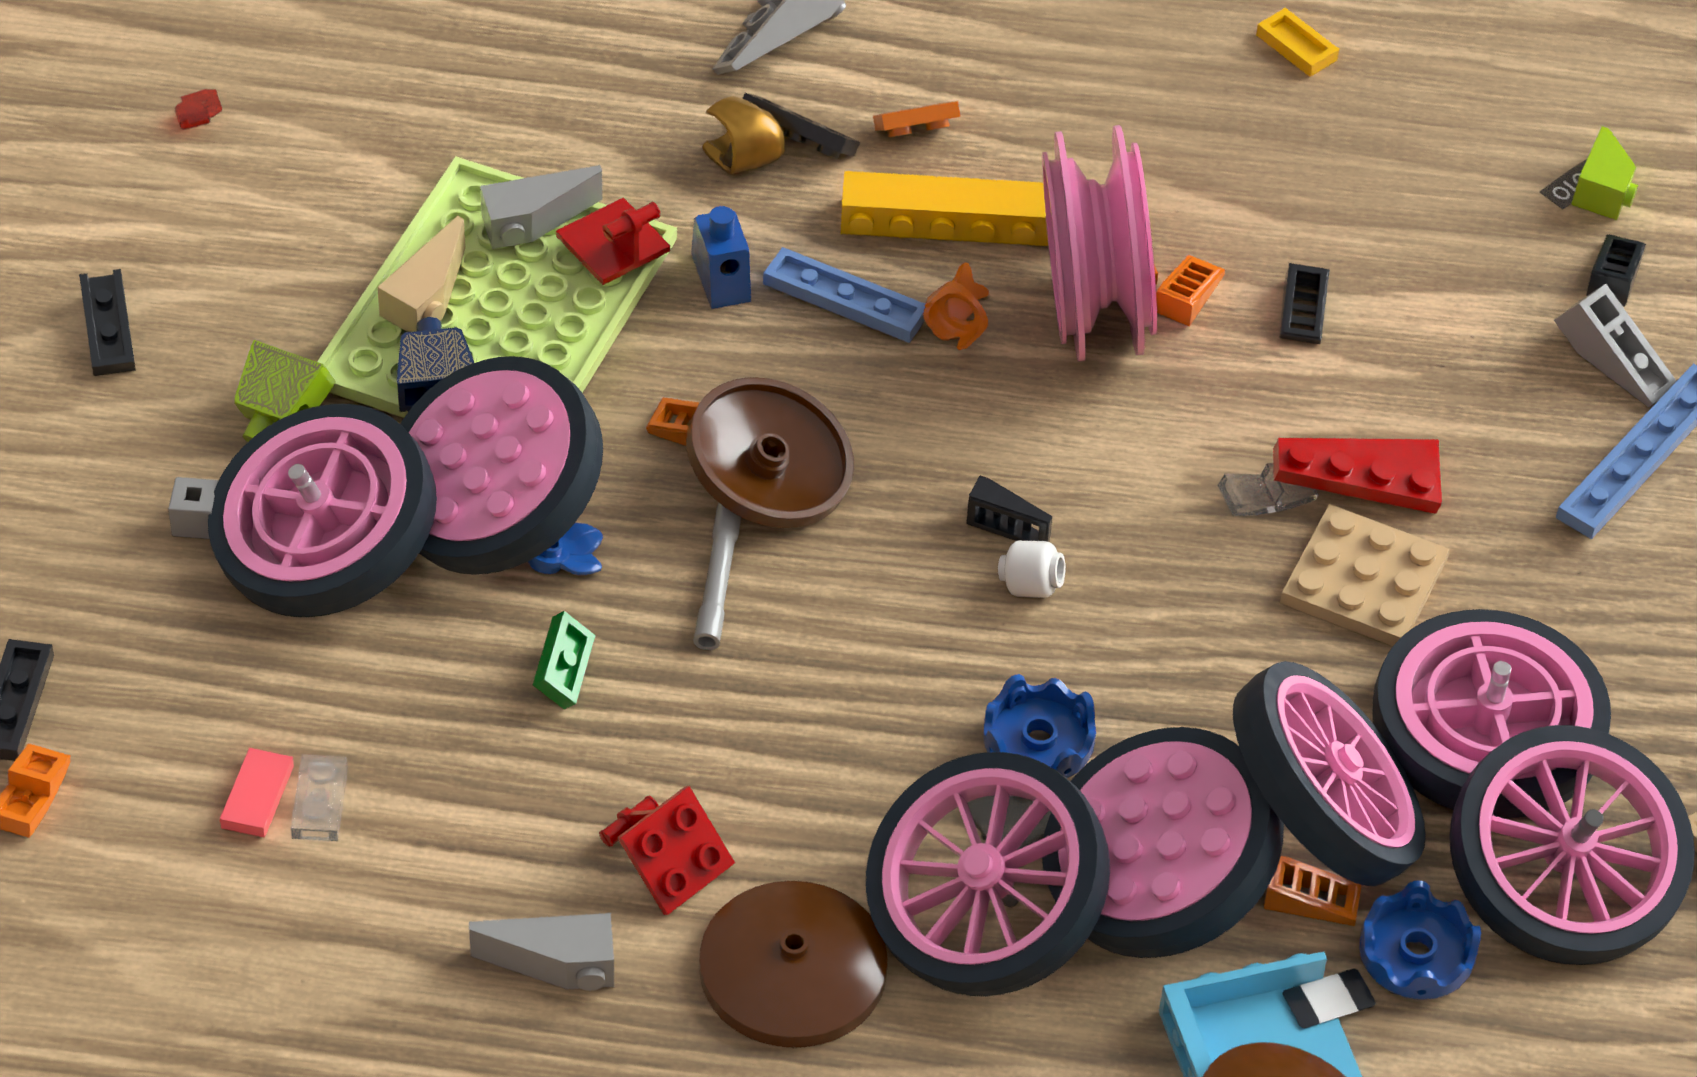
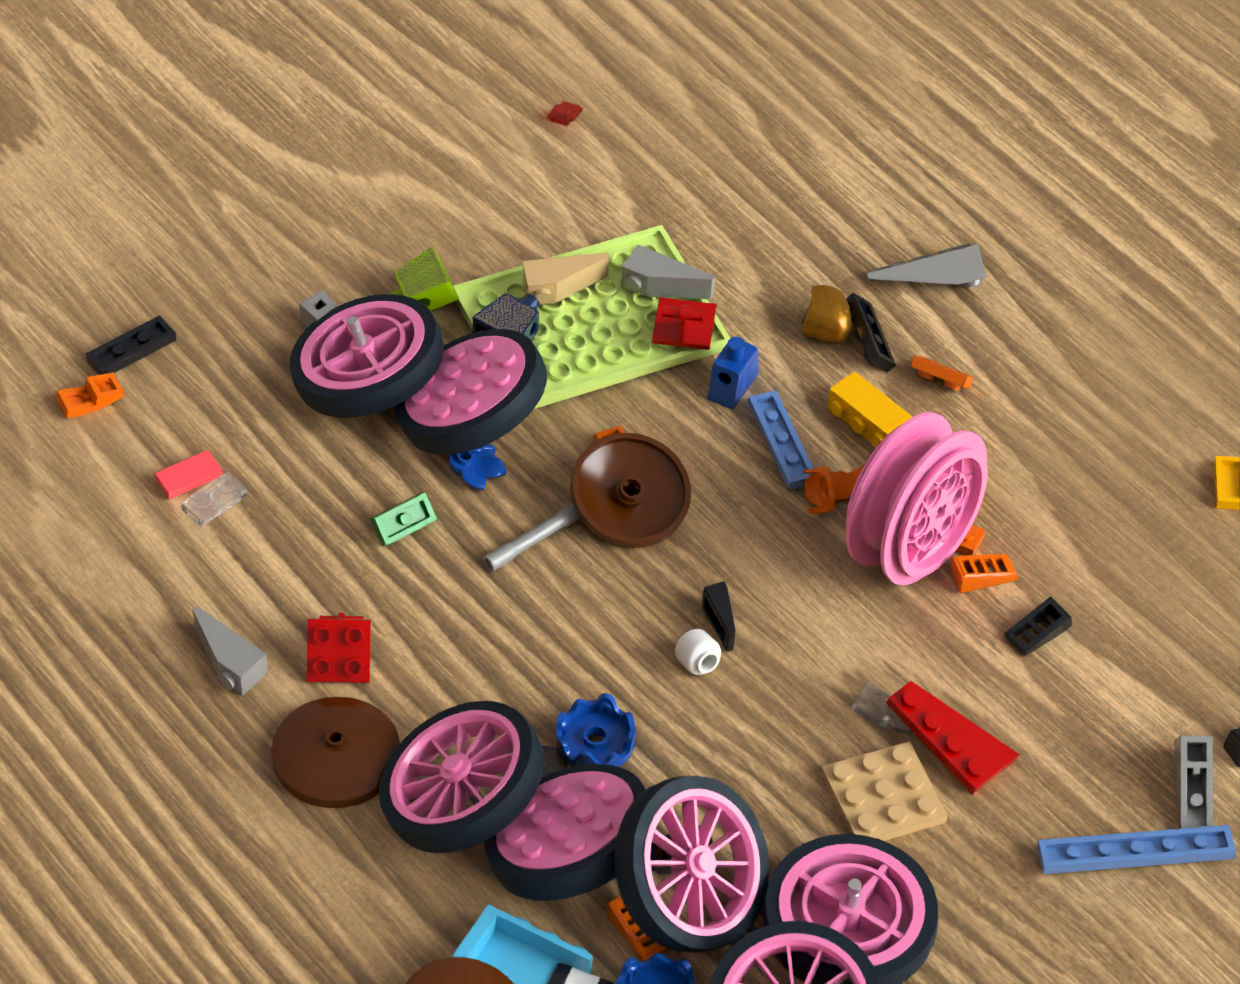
camera: 45 degrees right, 0 degrees up
(107, 324) = (389, 193): black hinge -> none

